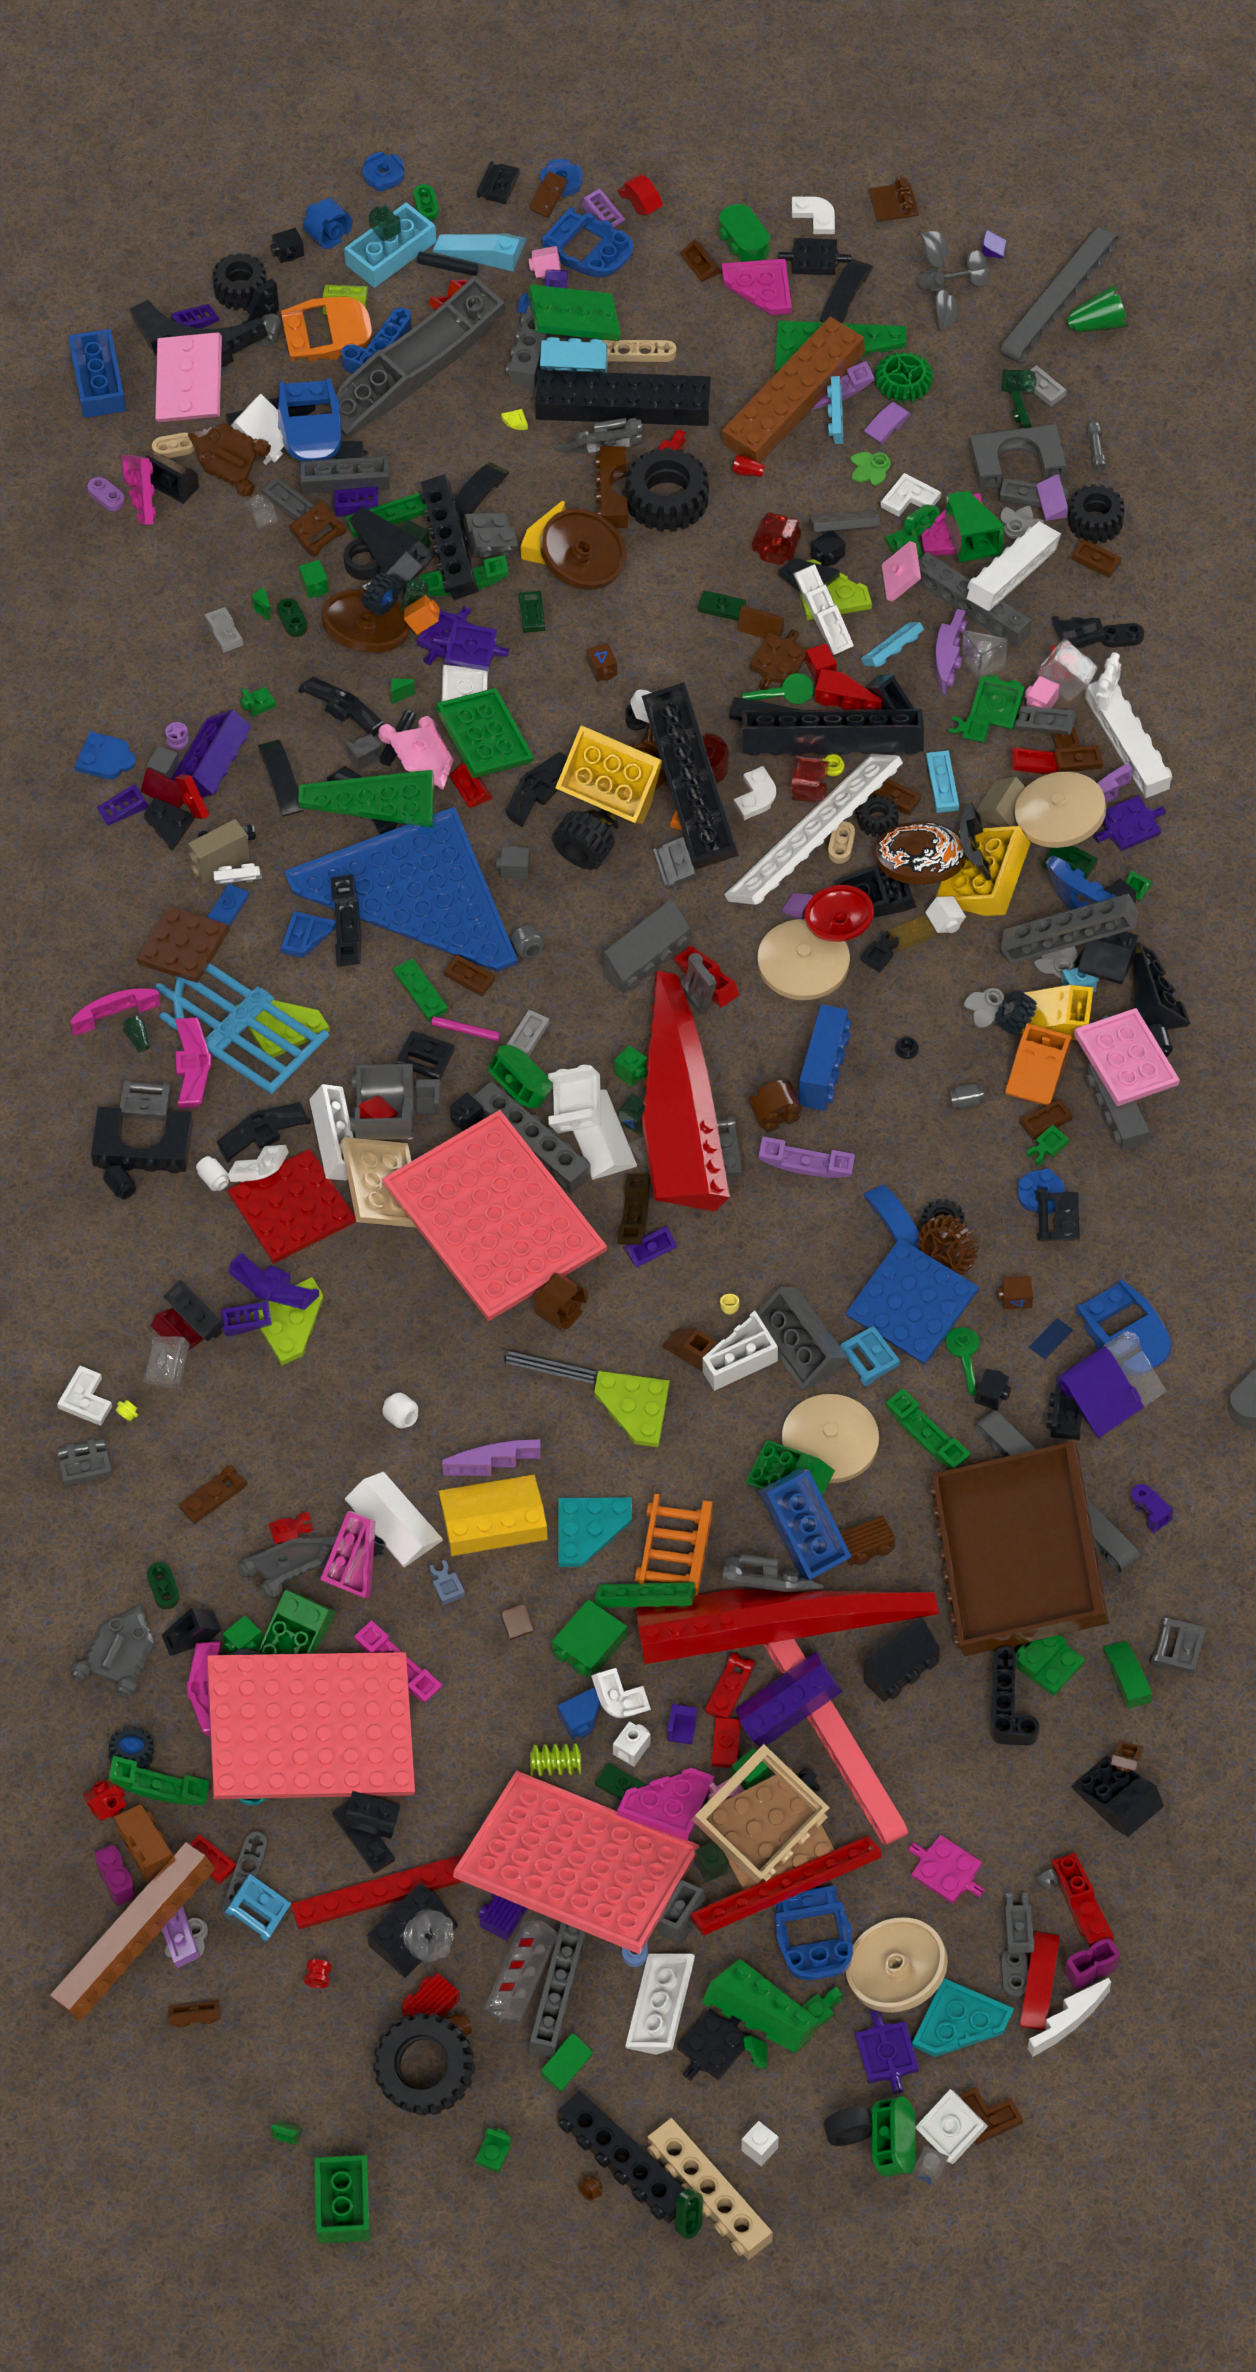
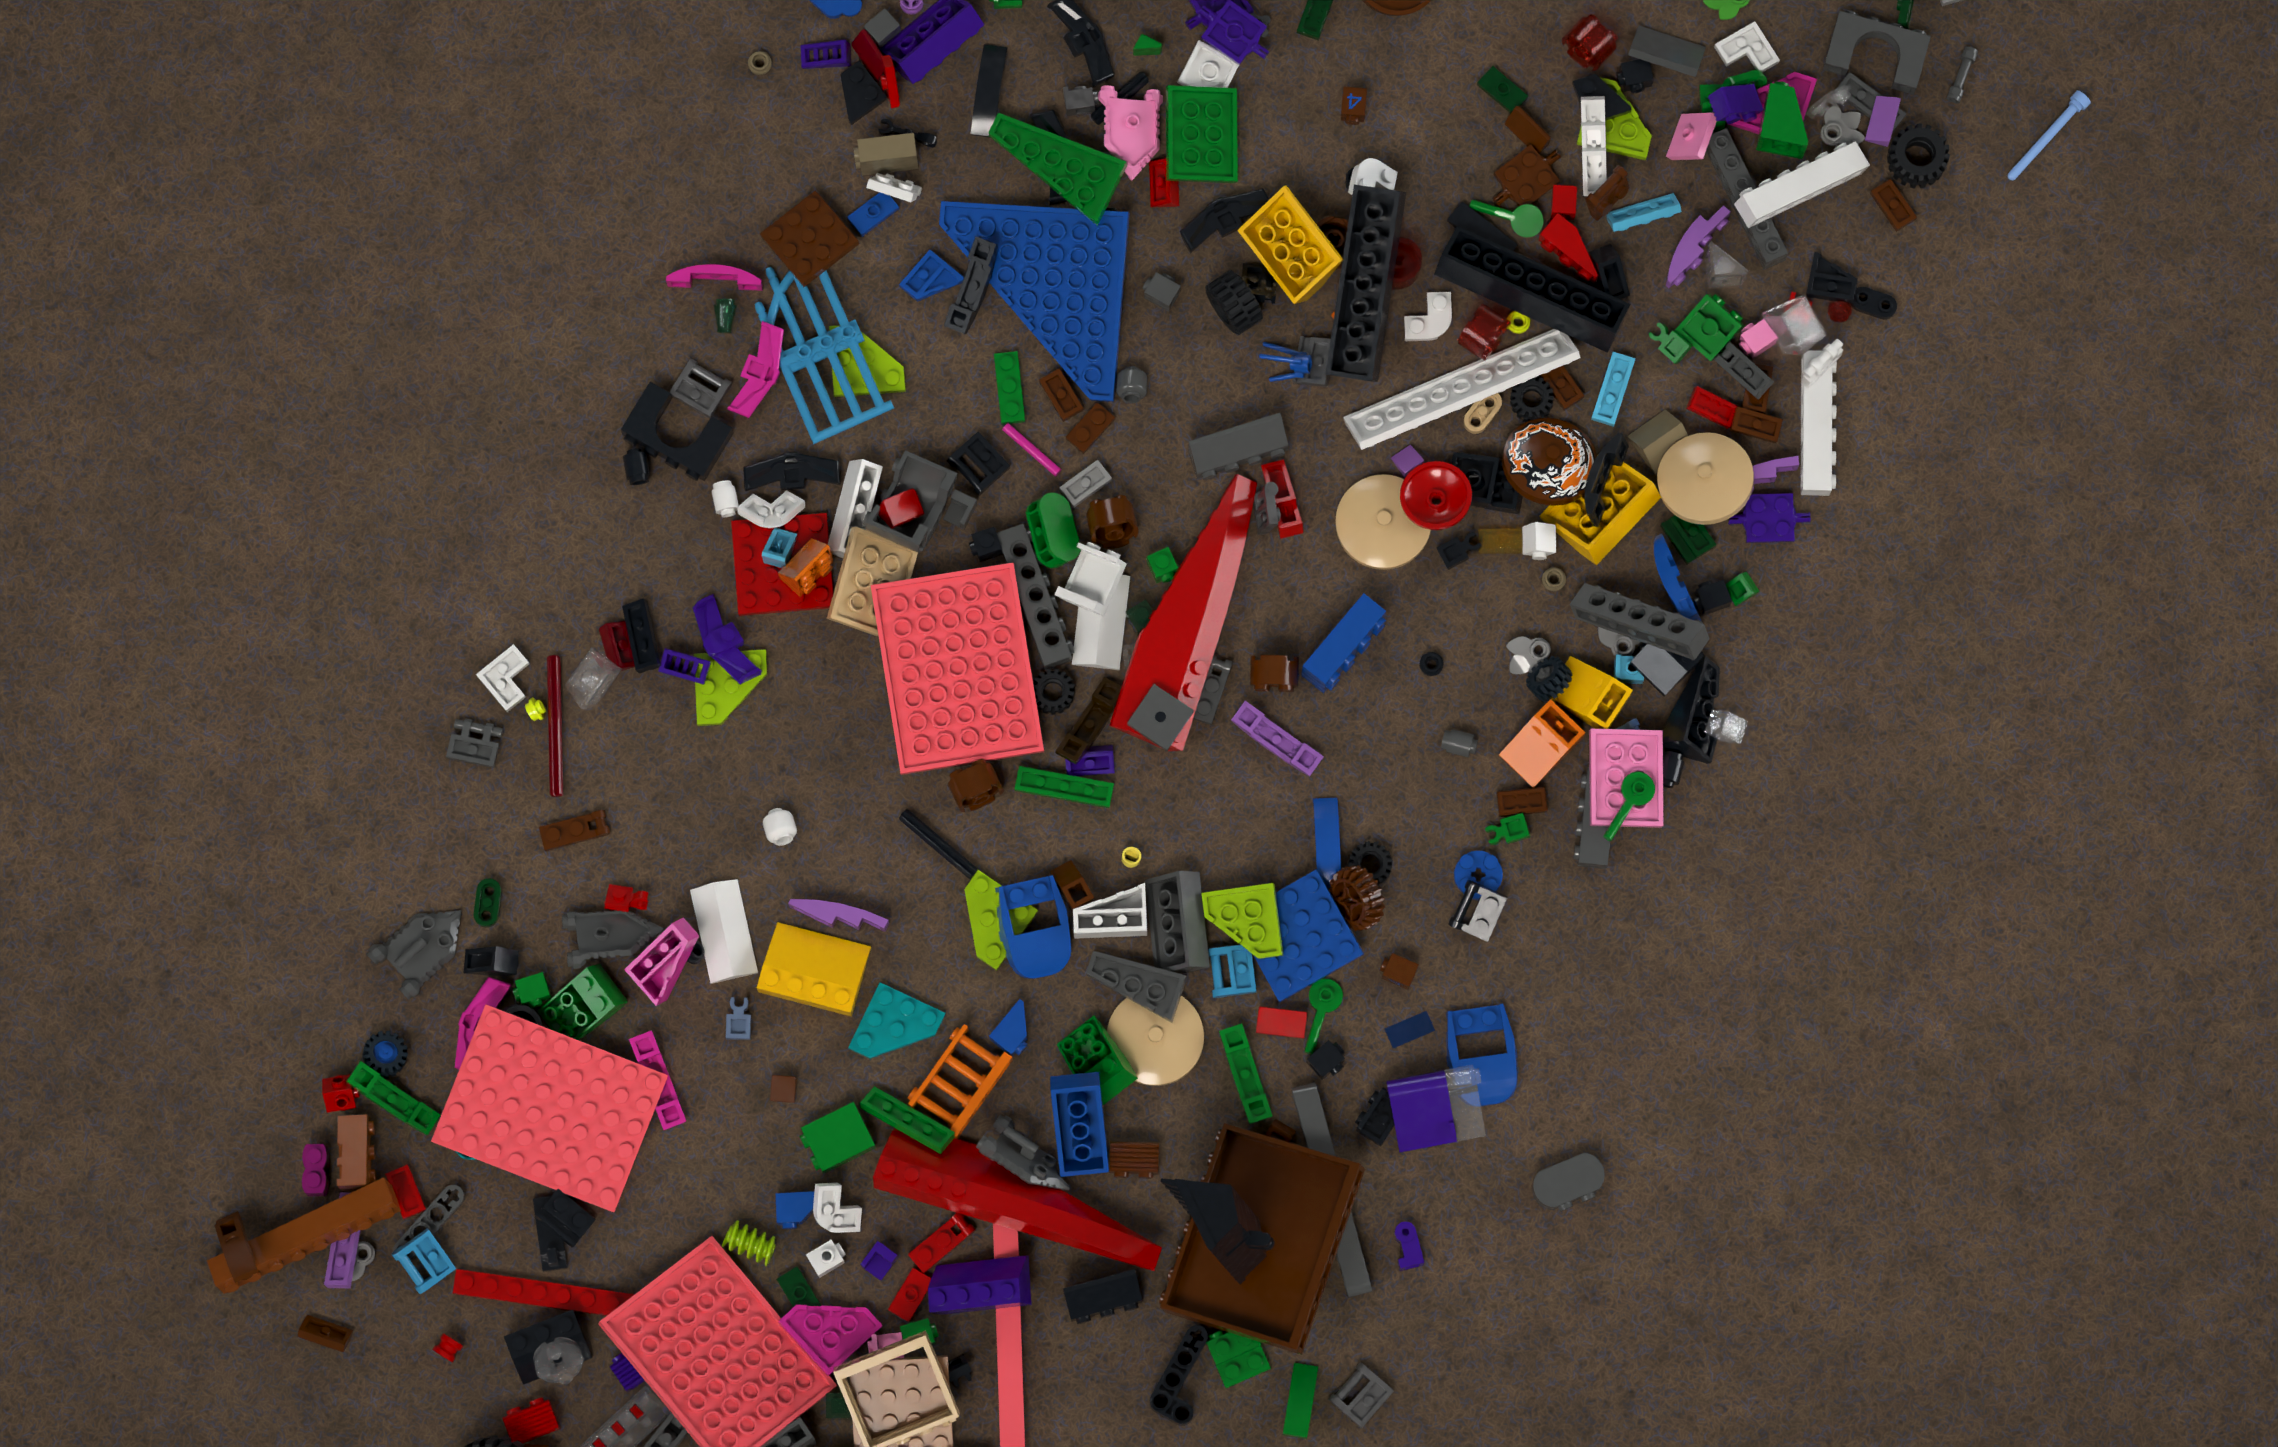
camera: 25 degrees right, 20 degrees up
(67, 828) = (756, 57): none -> dark tan plate
(75, 1962) = (236, 1247): none -> reddish brown slope
(151, 1418) = (555, 726): none -> dark red axle
(284, 1190) = (779, 548): none -> medium azure slope
(318, 1186) = (807, 567): none -> orange slope
(508, 991) = (1090, 428): none -> reddish brown plate
(568, 1046) = (1112, 522): none -> reddish brown brick
(591, 1192) = (1063, 681): none -> black tyre
(639, 1274) = (1064, 787): none -> green plate
(664, 865) = (1299, 362): none -> blue plant
(686, 1411) = (1039, 951): none -> blue slope
(697, 1172) = (1160, 717): none -> dark grey tile
(699, 1484) = (1011, 1031): none -> blue slope
(796, 1396) = (1143, 984): none -> dark grey wing
(855, 639) = (1608, 193): none -> reddish brown plate
(860, 1301) = (1247, 917): none -> lime plate
(925, 527) = (1735, 103): none -> dark purple brick
(935, 1377) = (1281, 1022): none -> red slope
(977, 937) = (1554, 572): none -> dark tan plate
(979, 1523) = (1224, 1223): none -> black piece
(1002, 498) = (1835, 97): none -> clear slope
(1098, 649) = (1839, 311): none -> clear red plate
(1142, 1060) = (1637, 791): none -> green piece
(1187, 987) = (1726, 727): none -> clear brick
(1202, 429) = (2078, 102): none -> light blue piece

